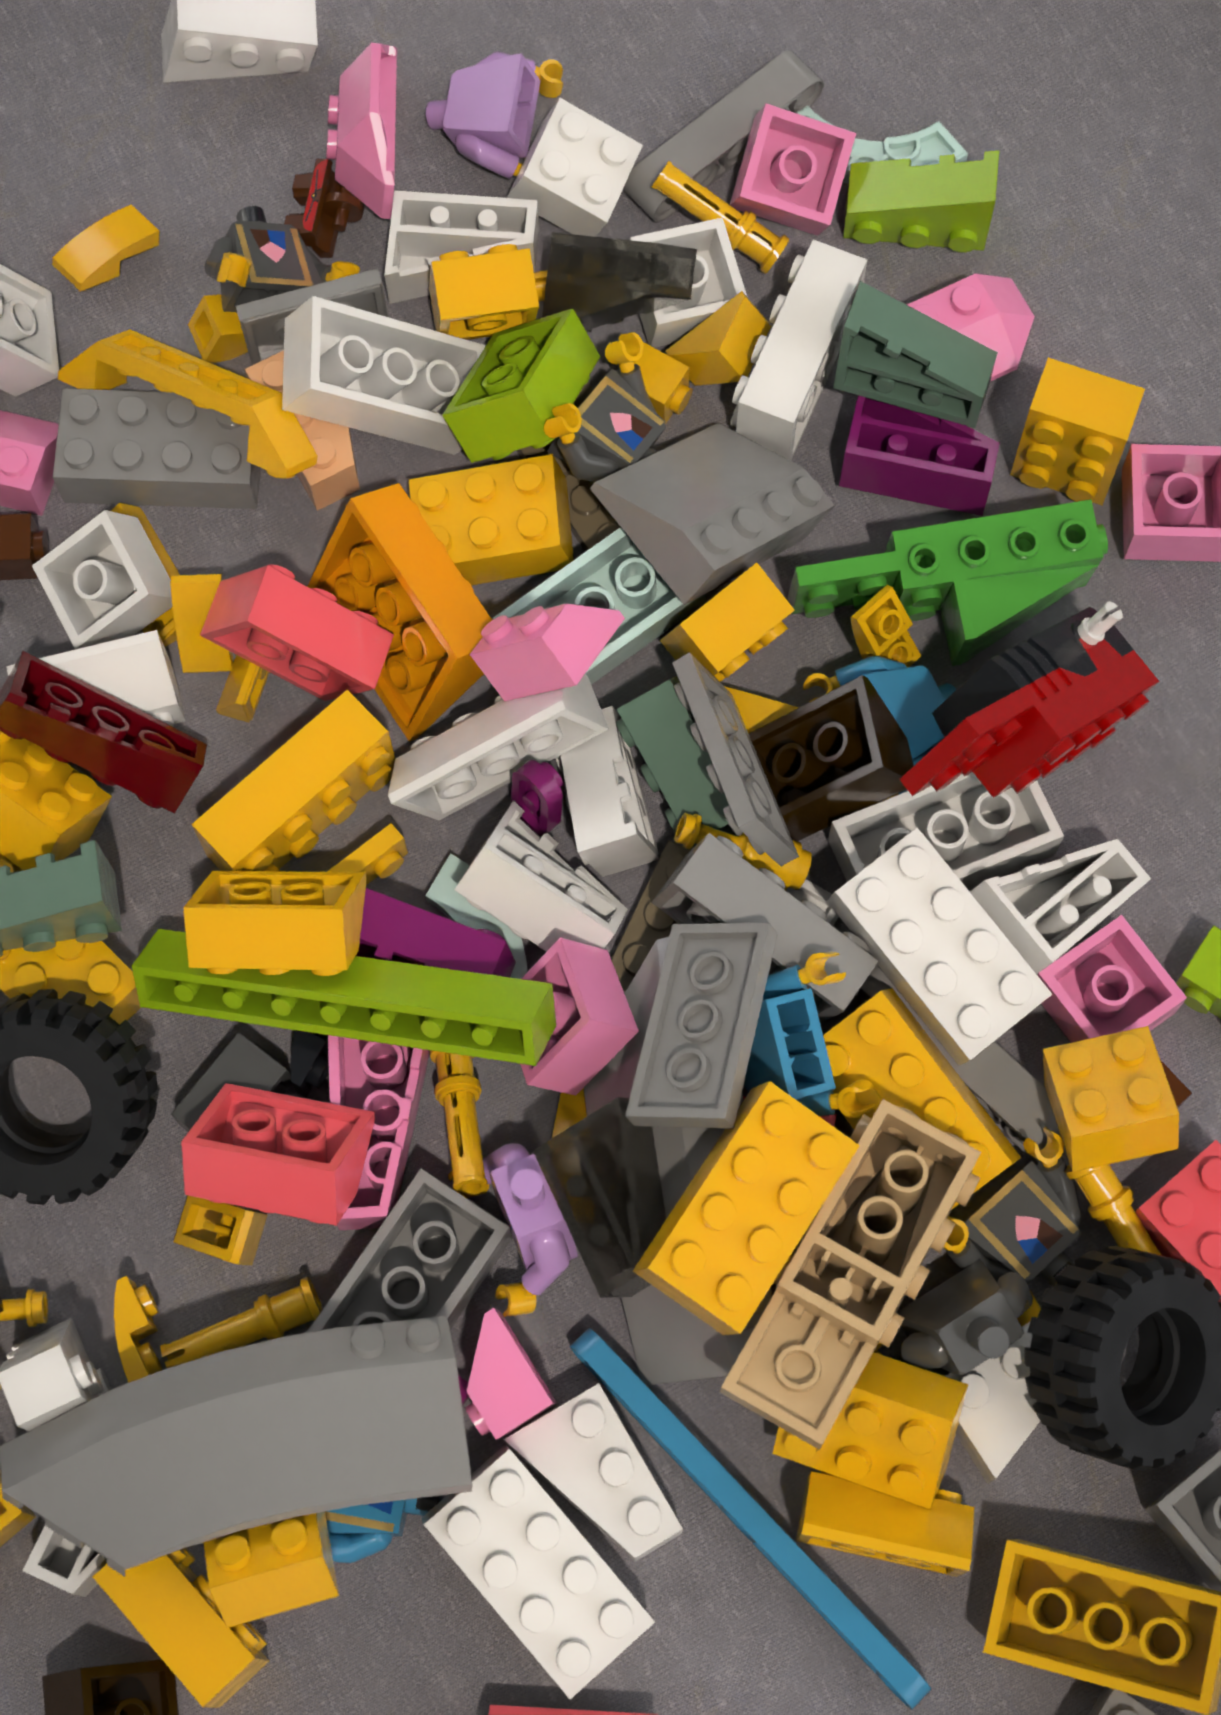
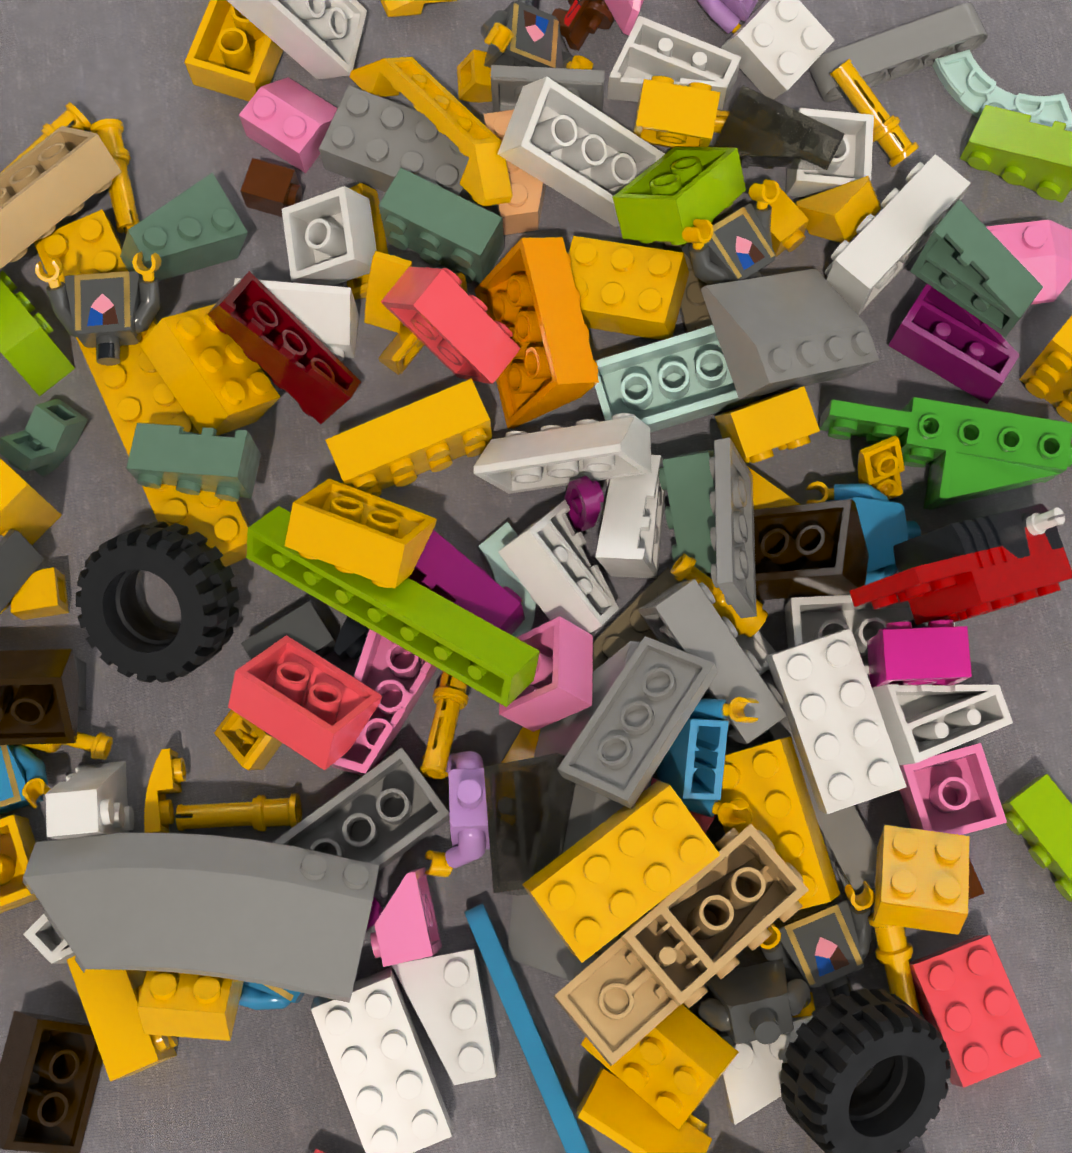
camera: 20 degrees right, 5 degrees up
(240, 521) = (441, 226): none -> sand green brick
(377, 856) = (452, 506): yellow plate -> none
(543, 648) = (623, 398): bright pink slope -> none
(792, 169) = (940, 95): bright pink brick -> none
(1010, 830) = (919, 655): none -> dark pink brick

